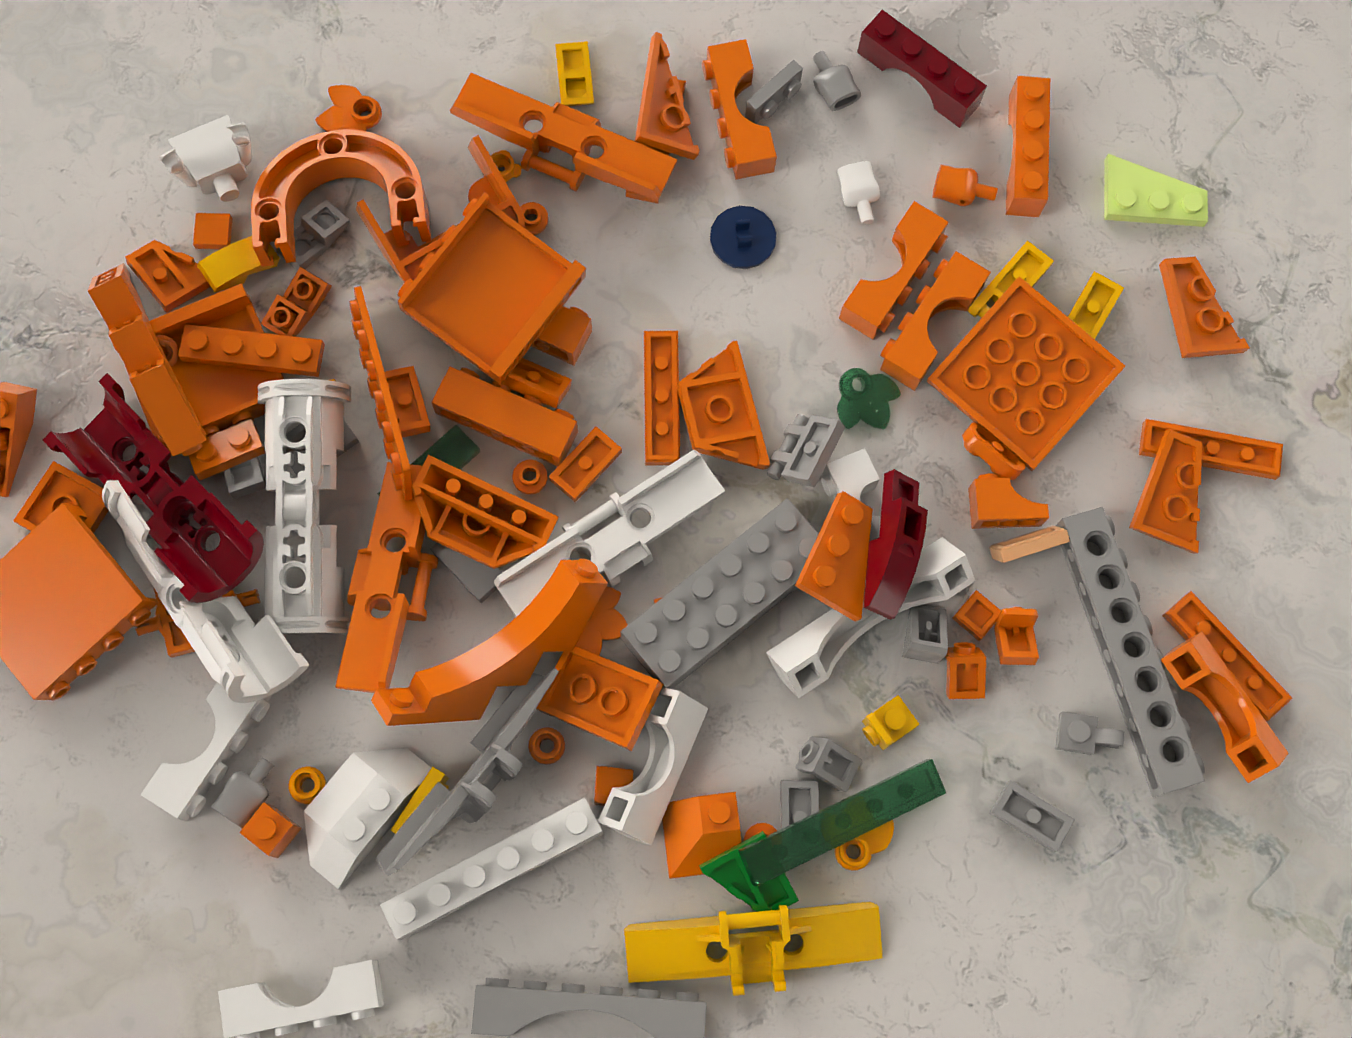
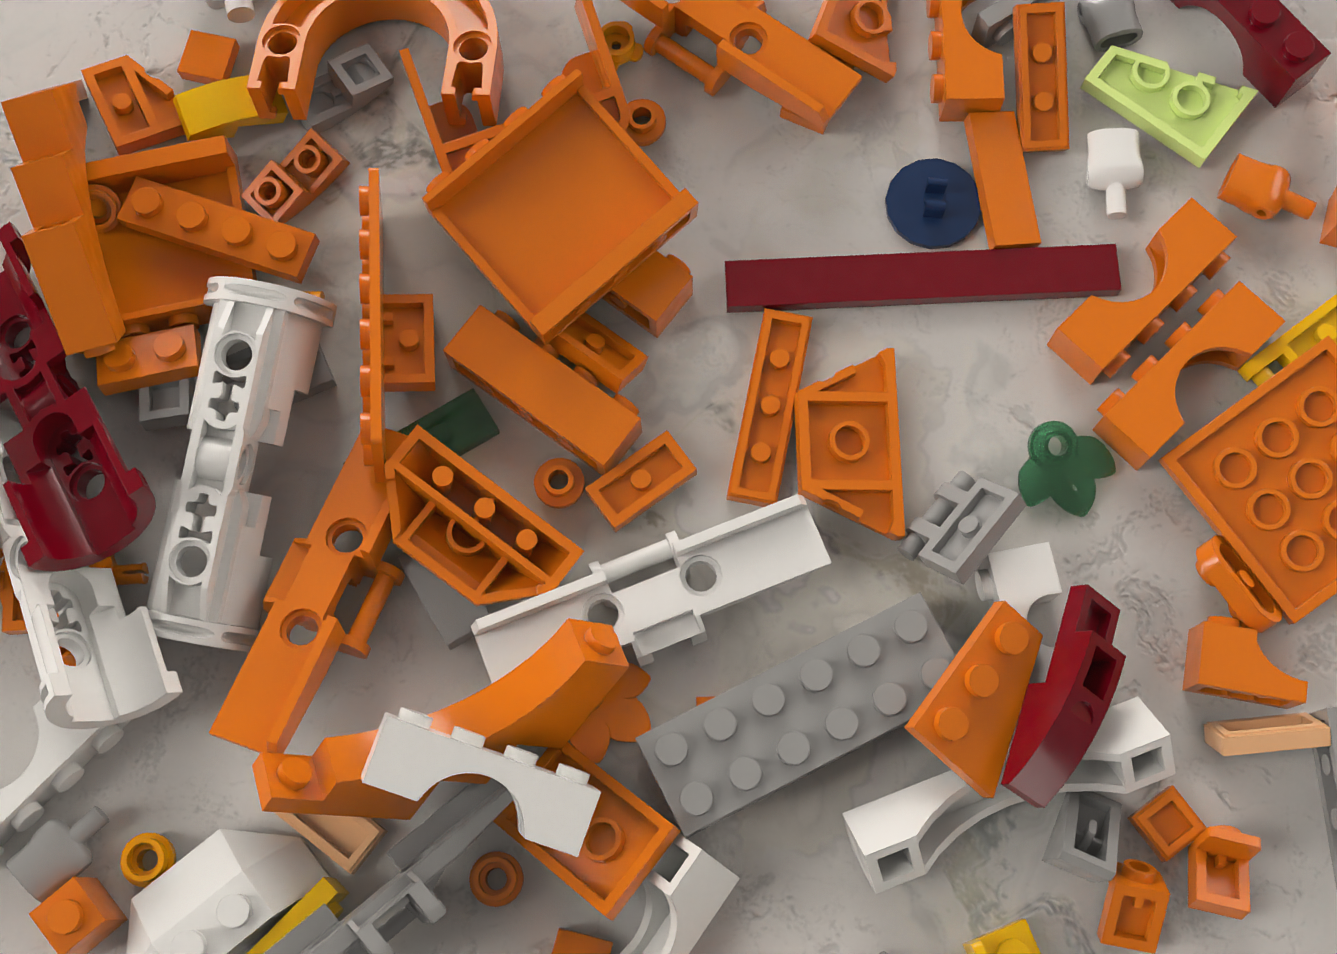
camera: 20 degrees right, 0 degrees up
(432, 739) = (341, 838): none -> light nougat tile
(573, 684) = (549, 804): none -> white arch
(744, 290) = (922, 278): none -> dark red tile
(786, 213) = (1002, 180): none -> orange tile
(798, 137) = (1041, 76): none -> orange tile
(888, 139) = (1169, 105): none -> yellowish green wing

